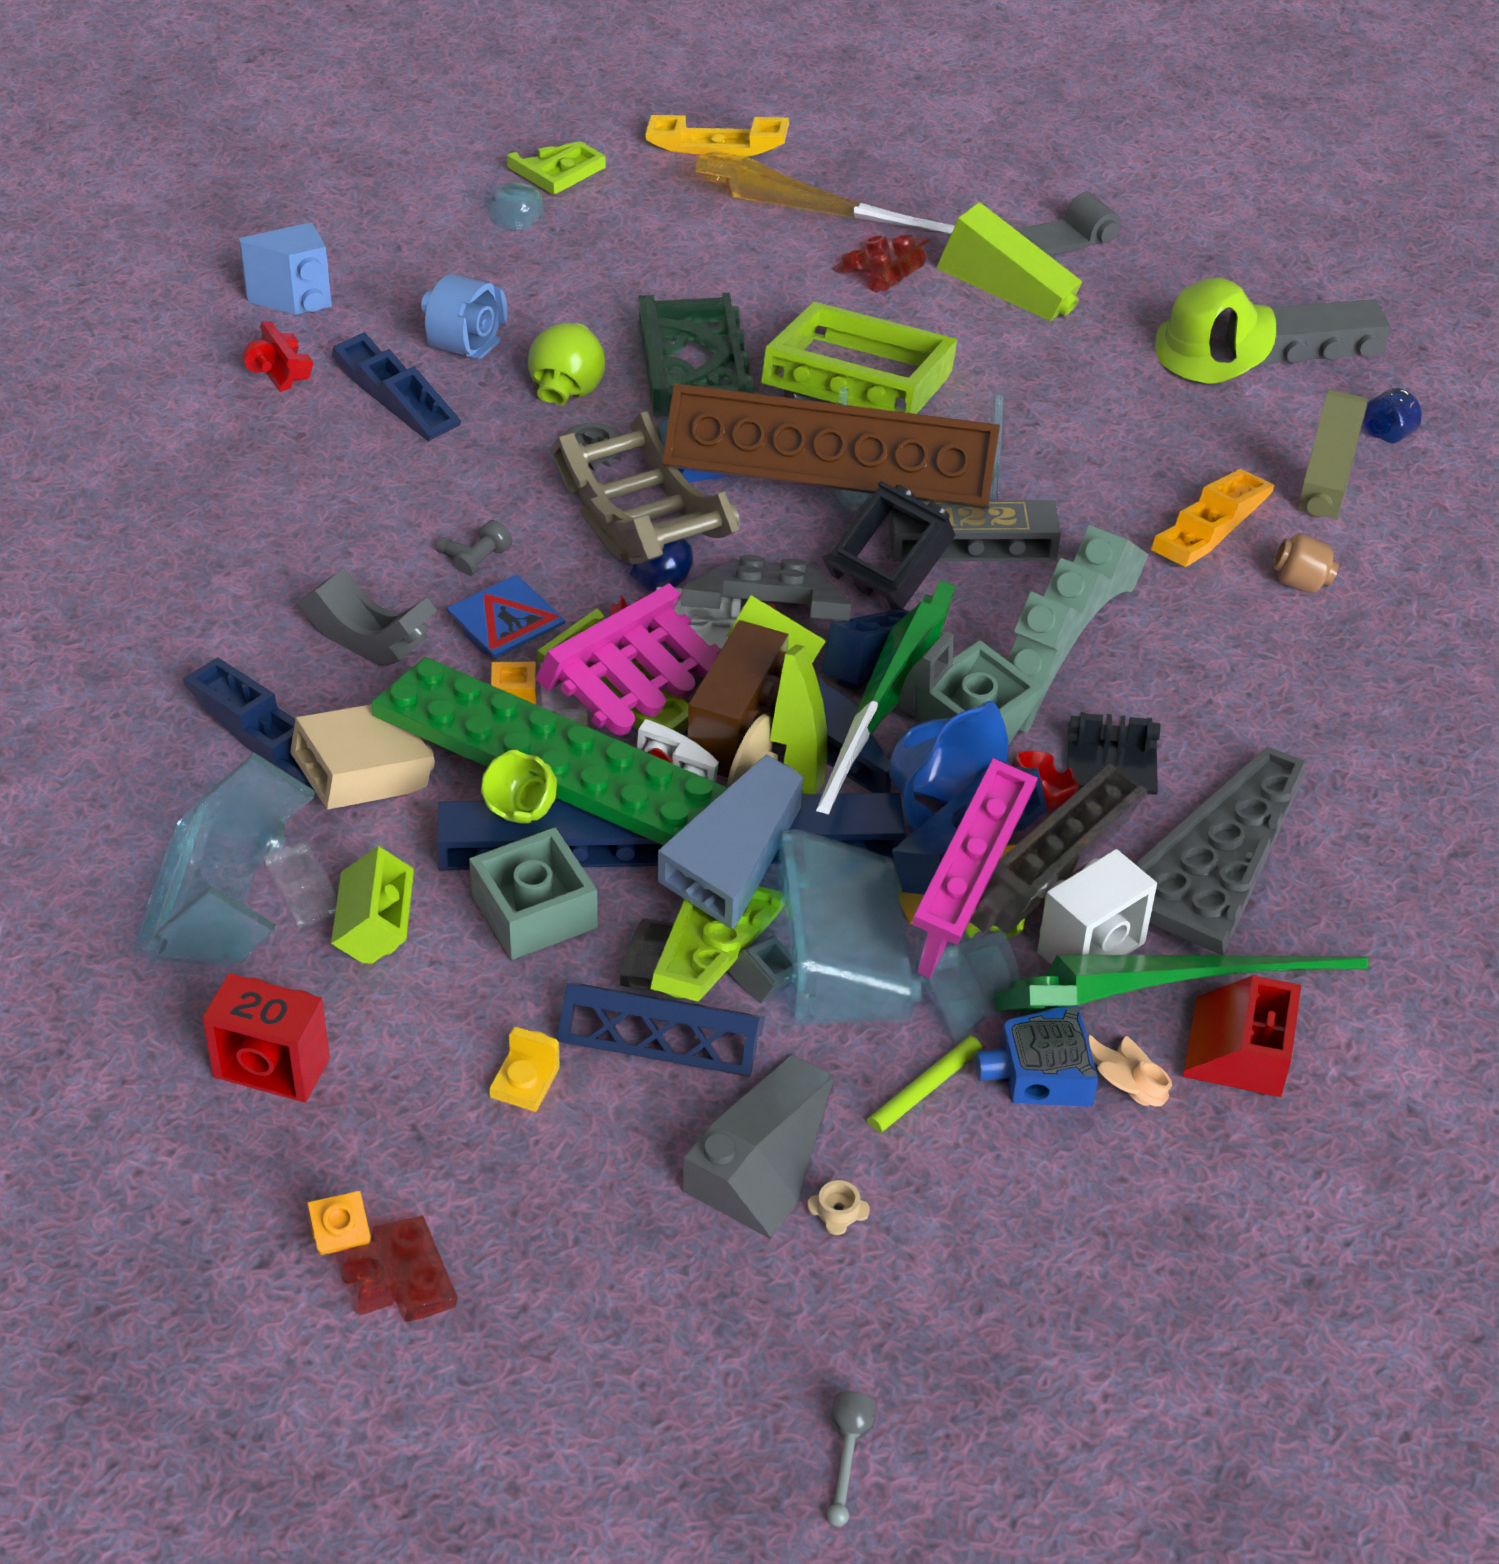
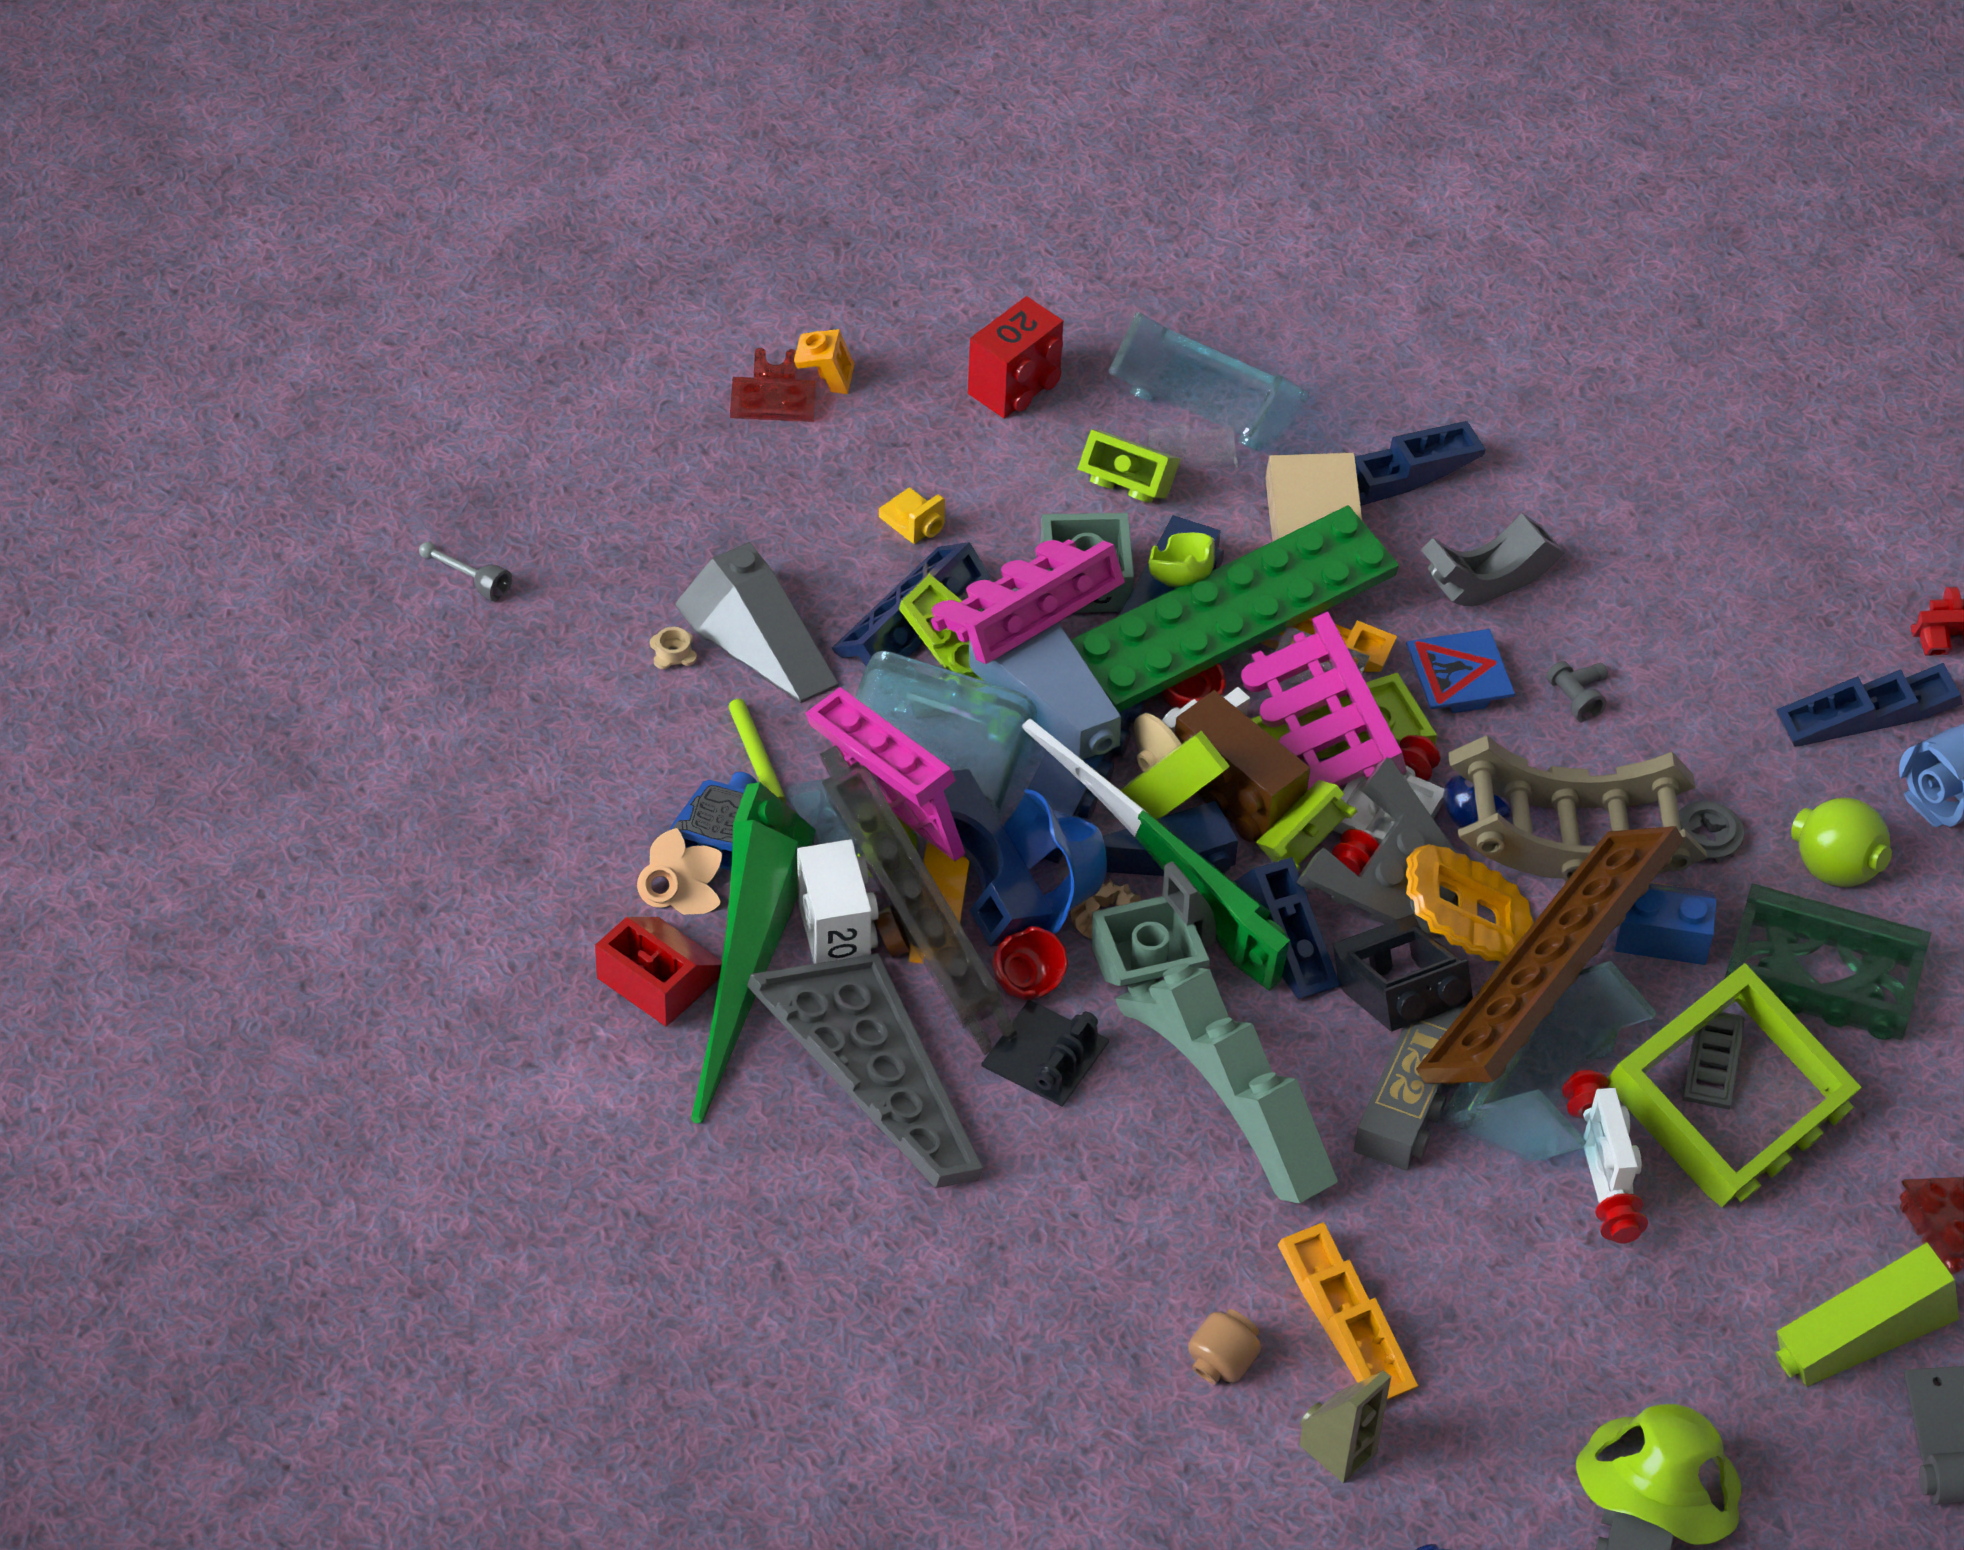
camera: 115 degrees right, 5 degrees up
(691, 847) = (1039, 603): none -> dark pink fence
(801, 529) = (1473, 884): none -> light orange piece
(970, 391) = (1608, 1153): none -> plate

